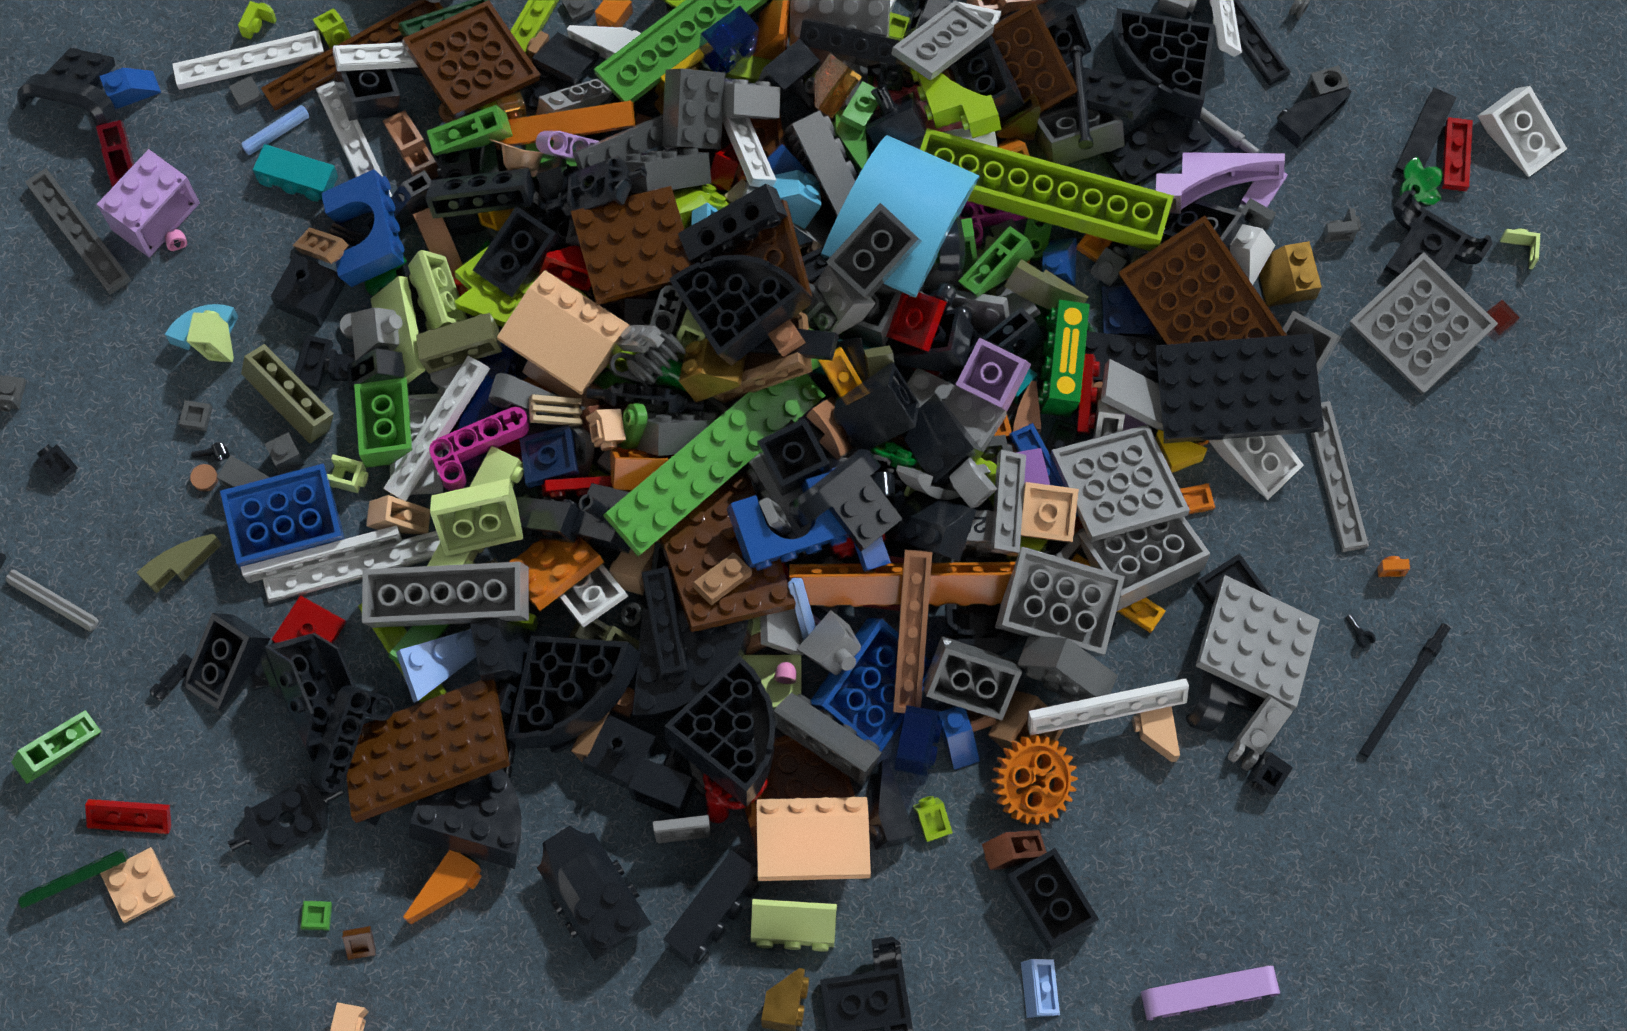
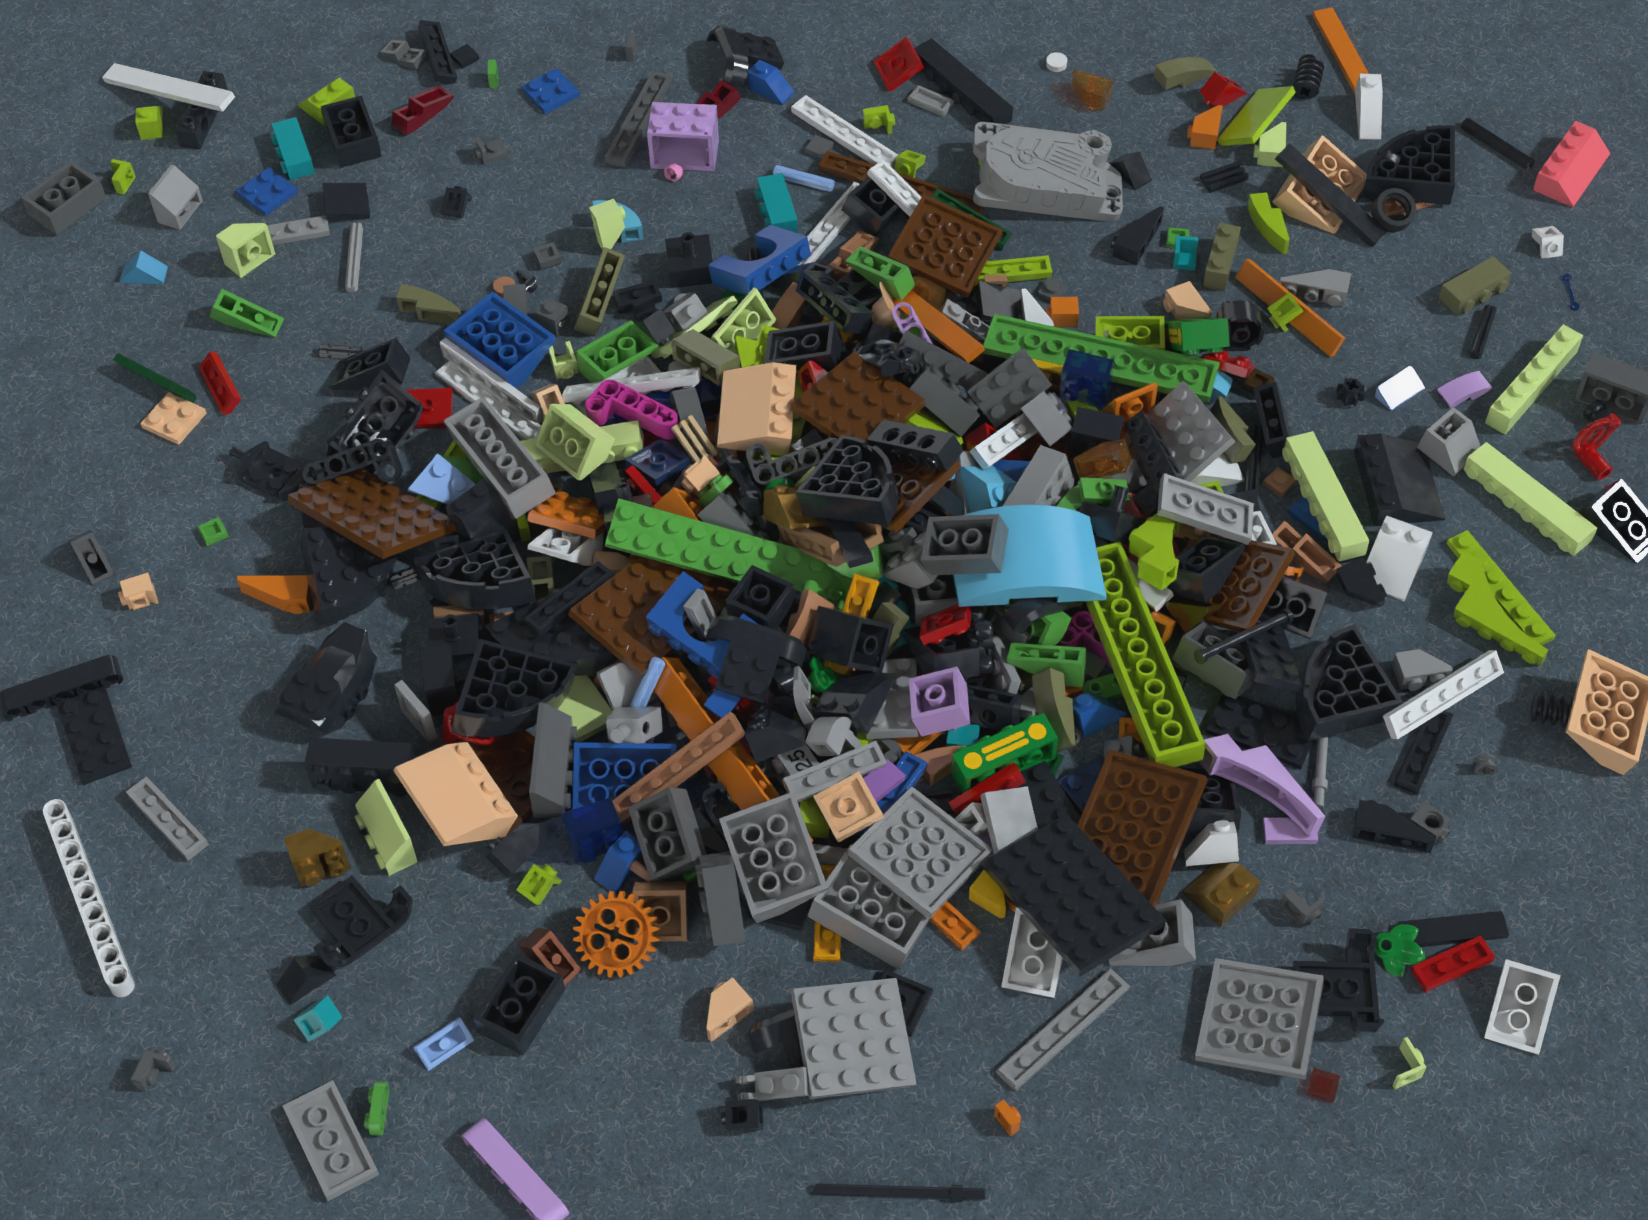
camera: 60 degrees right, 15 degrees down
(321, 245) = (726, 245): medium nougat plate -> none
(359, 942) = (205, 565): reddish brown plate -> none
(639, 338) = (779, 444): light grey hinge -> none
(655, 358) = (773, 467): dark grey piece -> none
(722, 578) = (624, 609): medium nougat plate -> none
(785, 673) = (591, 711): bright pink hinge -> none
(786, 338) = (845, 529): nougat plate -> none
(1108, 707) = (711, 948): white tile -> none
(1258, 214) = (1257, 831): dark grey bracket -> none
(1359, 632) = (930, 1124): black hand -> none

